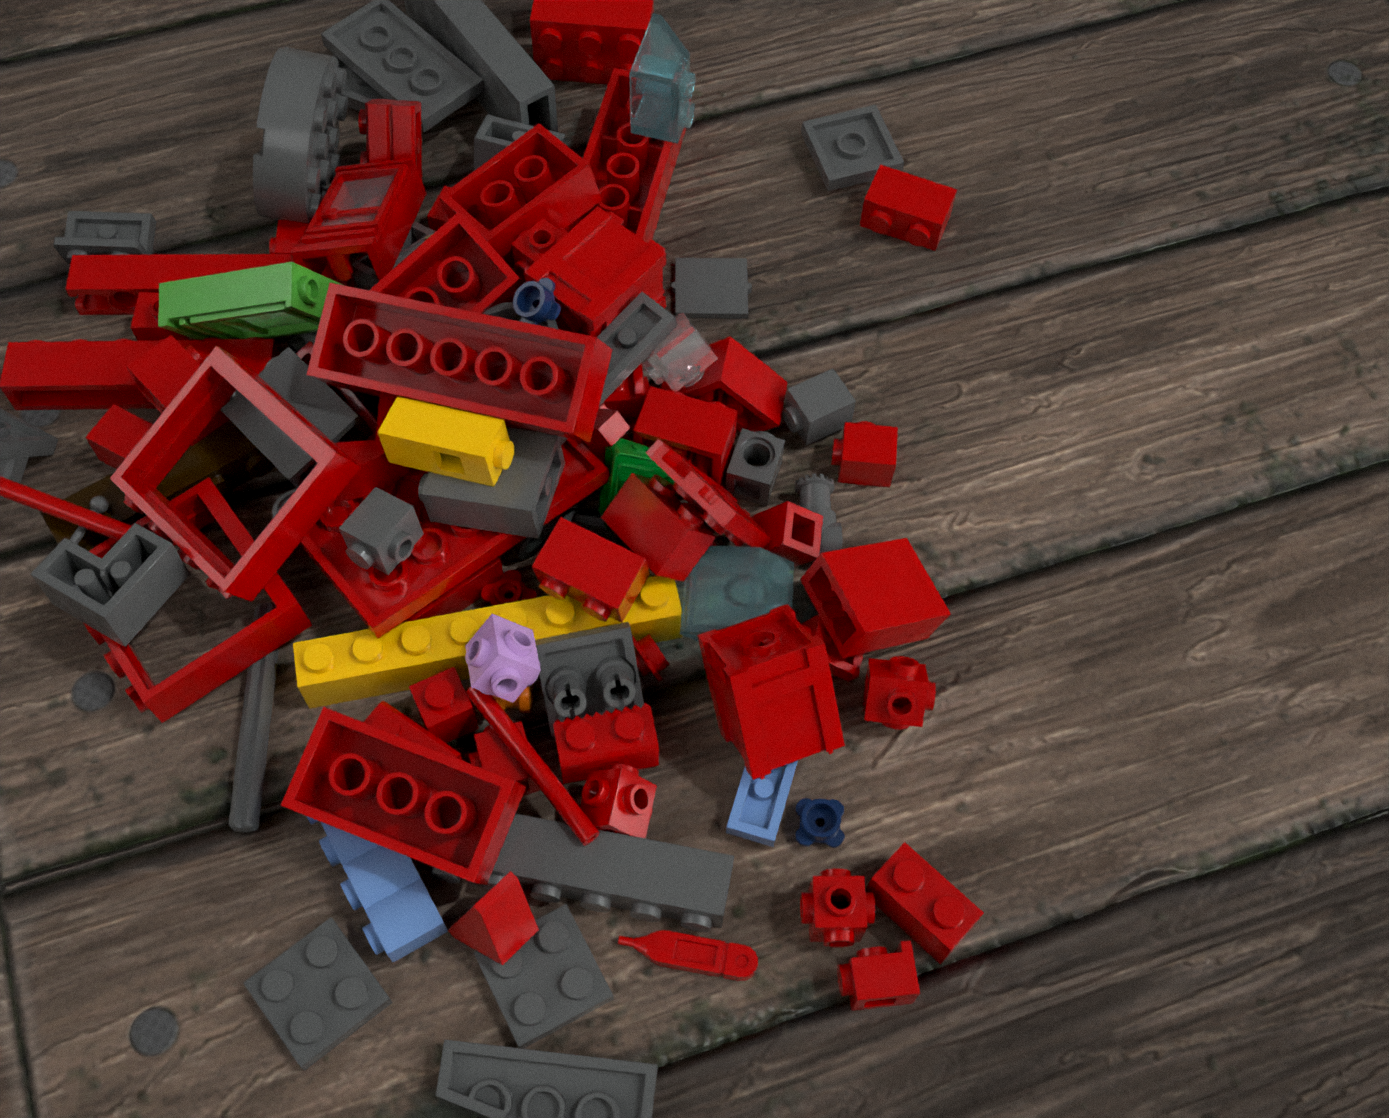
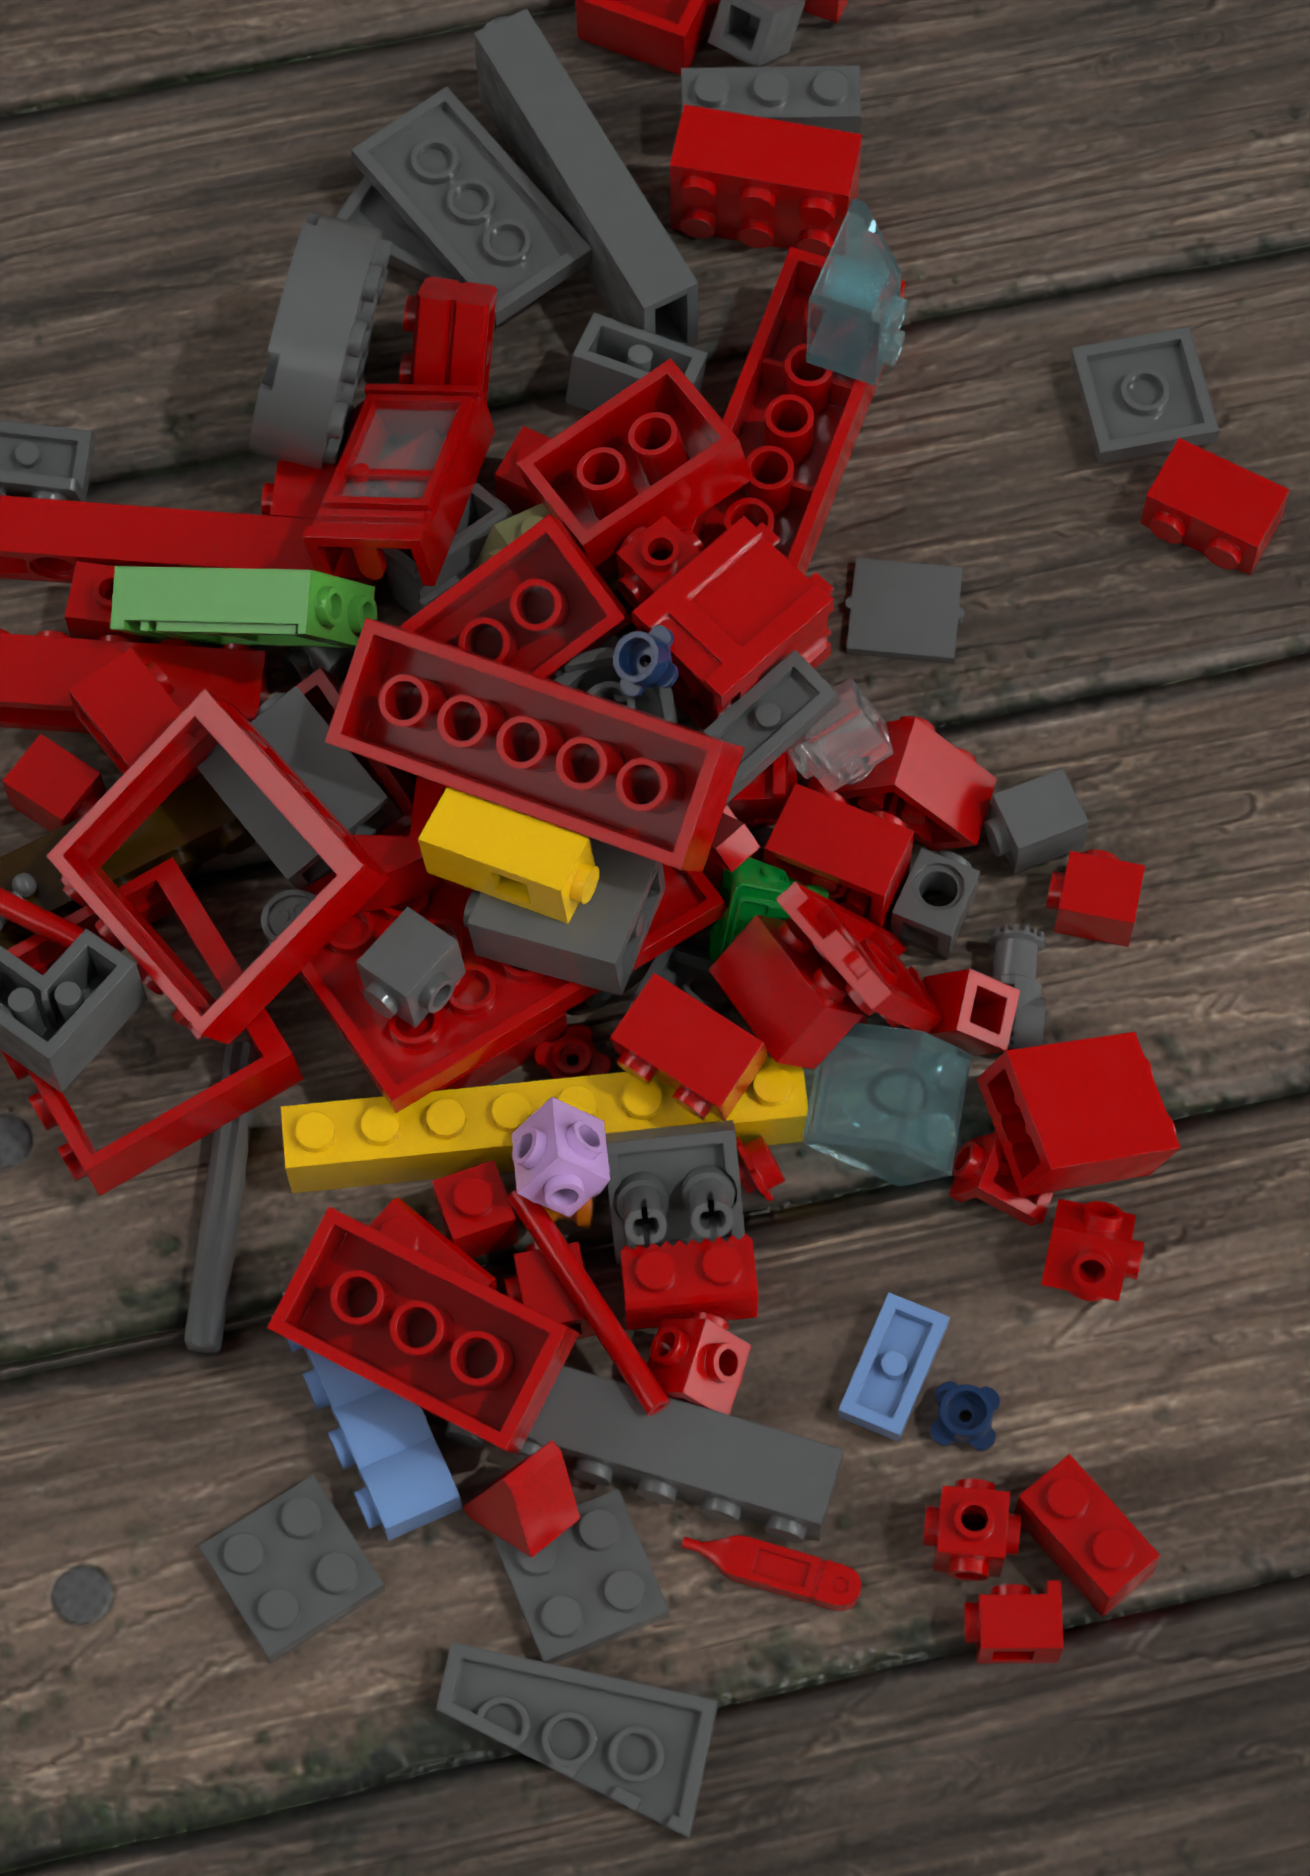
camera: 10 degrees right, 5 degrees up
(772, 690) = (915, 1234): red container -> none

